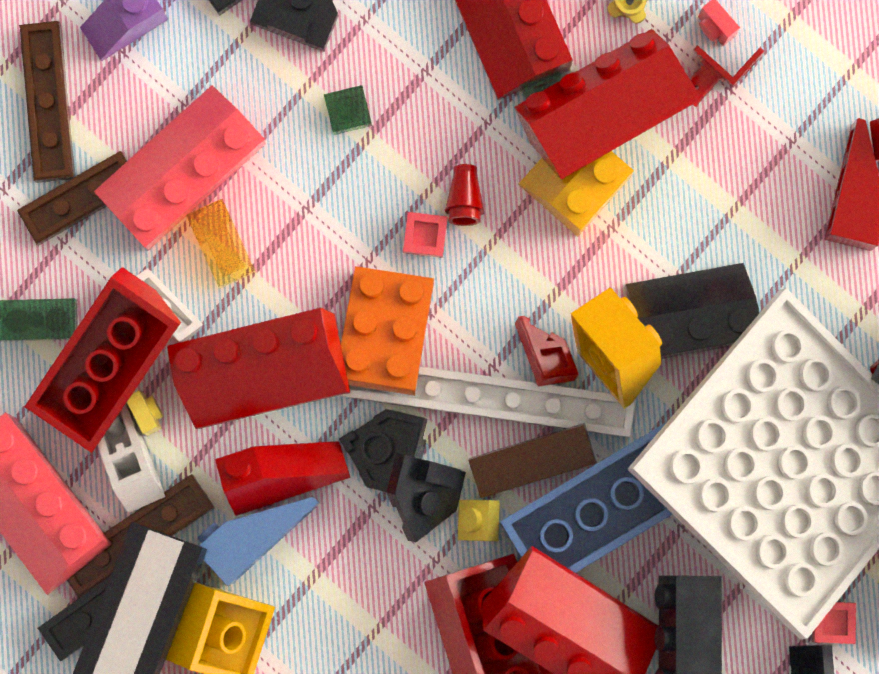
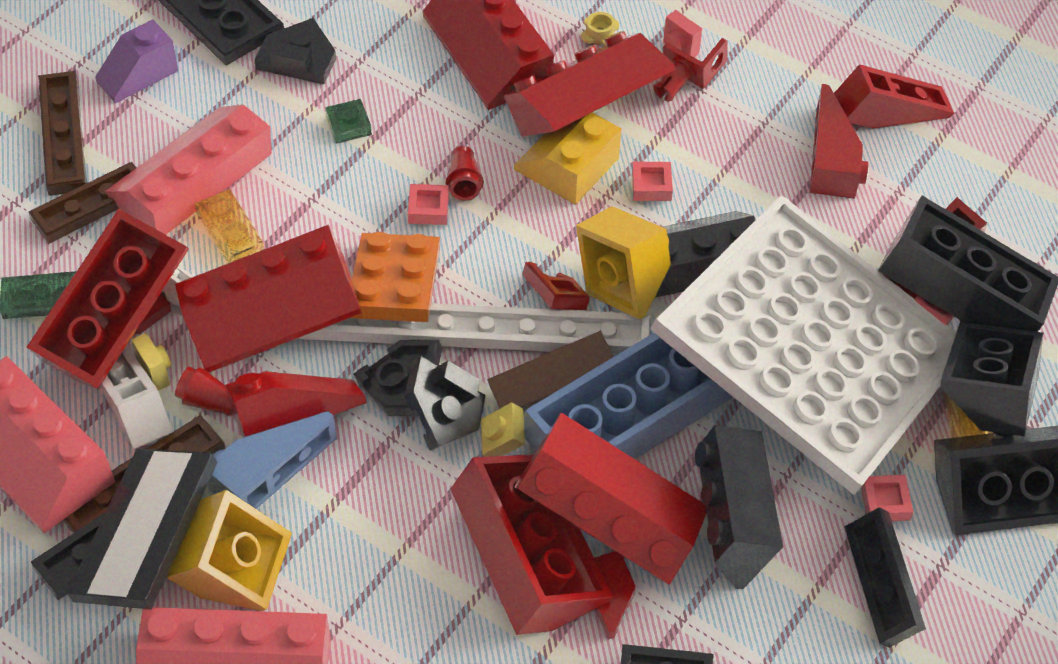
camera: 10 degrees left, 30 degrees down
(195, 449) = (203, 391): none -> red cone
(660, 222) = (652, 181): none -> coral plate

